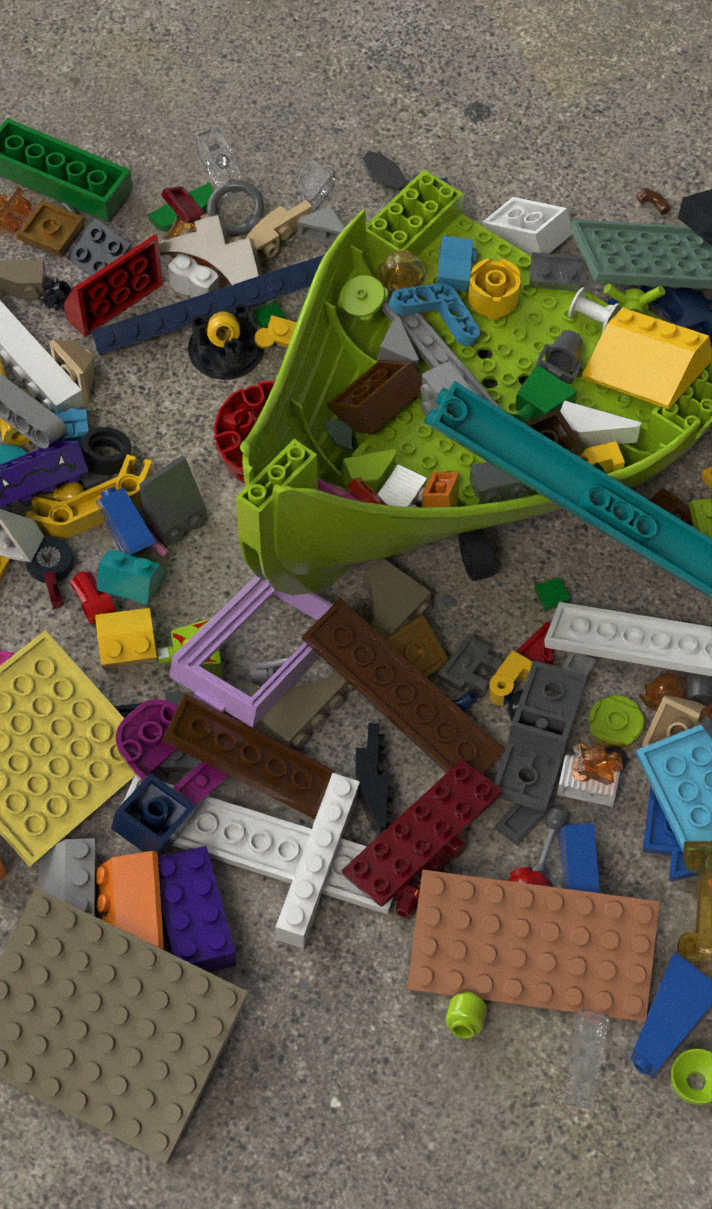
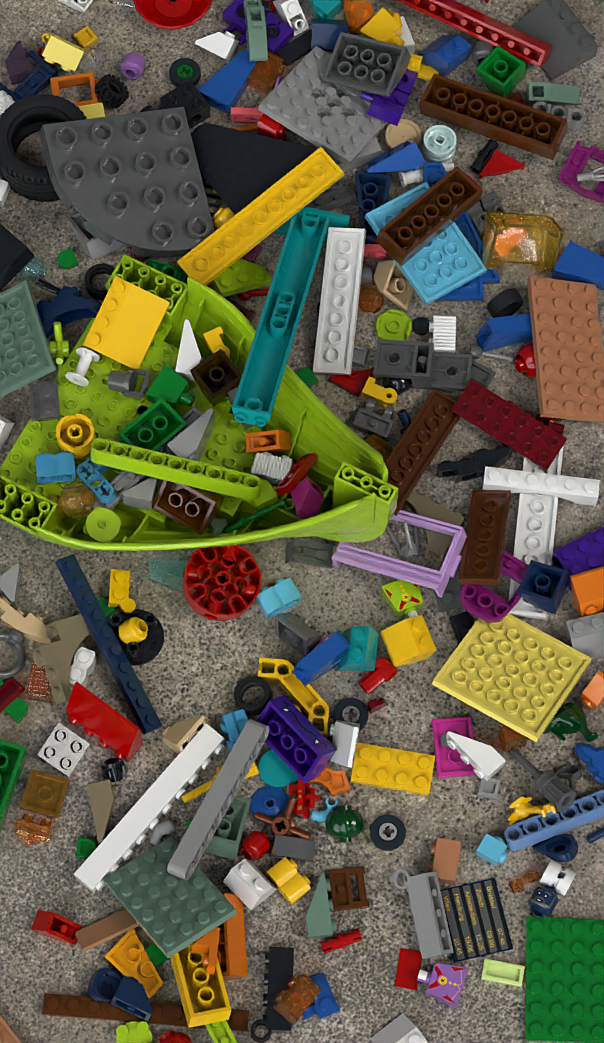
camera: 100 degrees left, 10 degrees up
(224, 498) = (278, 598): none -> medium azure brick
(334, 455) = (260, 513): none -> green piece
(405, 373) = (175, 469): none -> lime beam
(484, 363) = (153, 427): none -> green slope
(595, 764) = (444, 324): clear orange hips -> none
(625, 869) = (505, 303): none -> black tyre

